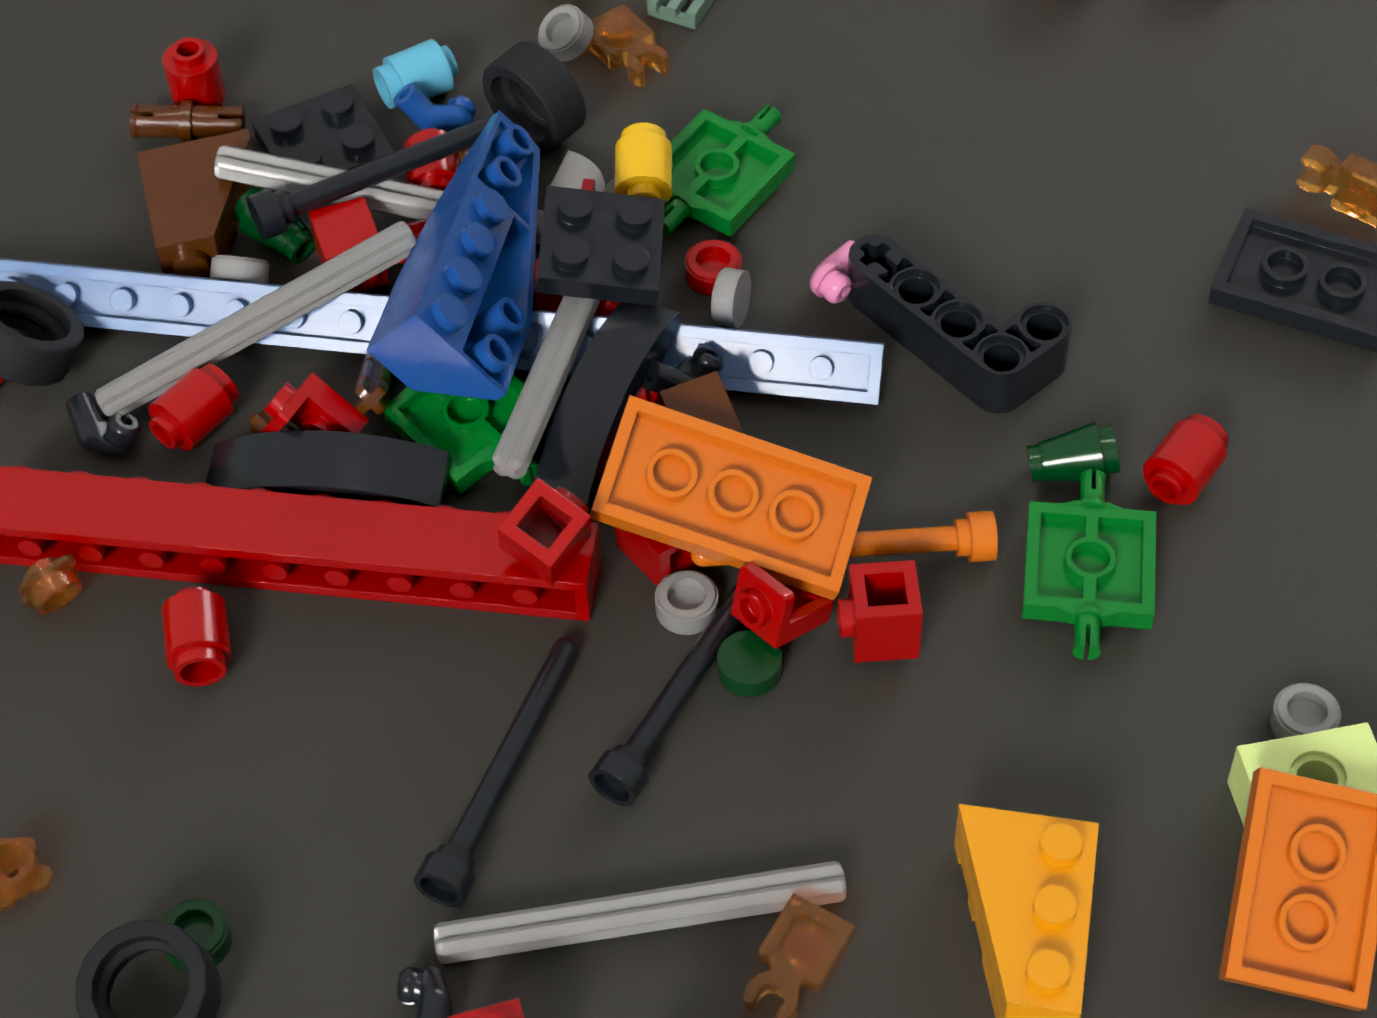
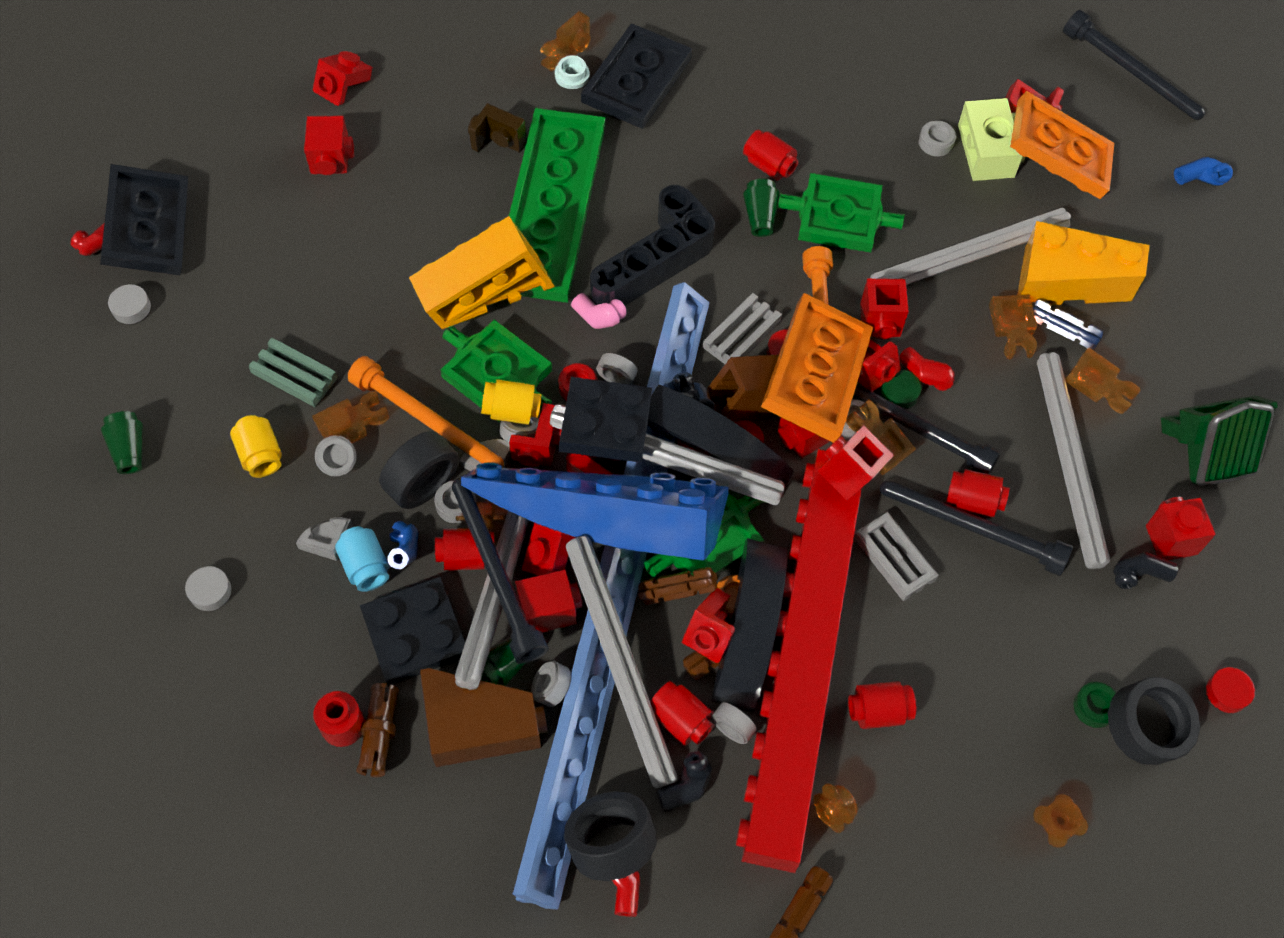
camera: 90 degrees left, 10 degrees up
(177, 459) = (733, 723): none -> light grey tile
(453, 669) = (903, 589): none -> light grey tile
(461, 45) = (323, 537): none -> light grey tile
(555, 760) = (978, 492): none -> red brick
(637, 629) = (888, 433): none -> clear orange plate
(689, 48) = (367, 375): none -> orange piece
(782, 695) = (926, 370): none -> red arm
(837, 442) = (760, 310): none -> light grey tile
(850, 111) = (478, 274): none -> light orange wedge
(907, 820) = (1014, 318): none -> clear orange plate
(917, 912) = (1067, 324): none -> axle
(1029, 200) = (556, 192): none -> green plate
(1057, 769) = (971, 250): none -> light grey axle
(1147, 115) = (498, 126): none -> dark brown bracket
(1296, 200) = (572, 72): none -> light aqua plate

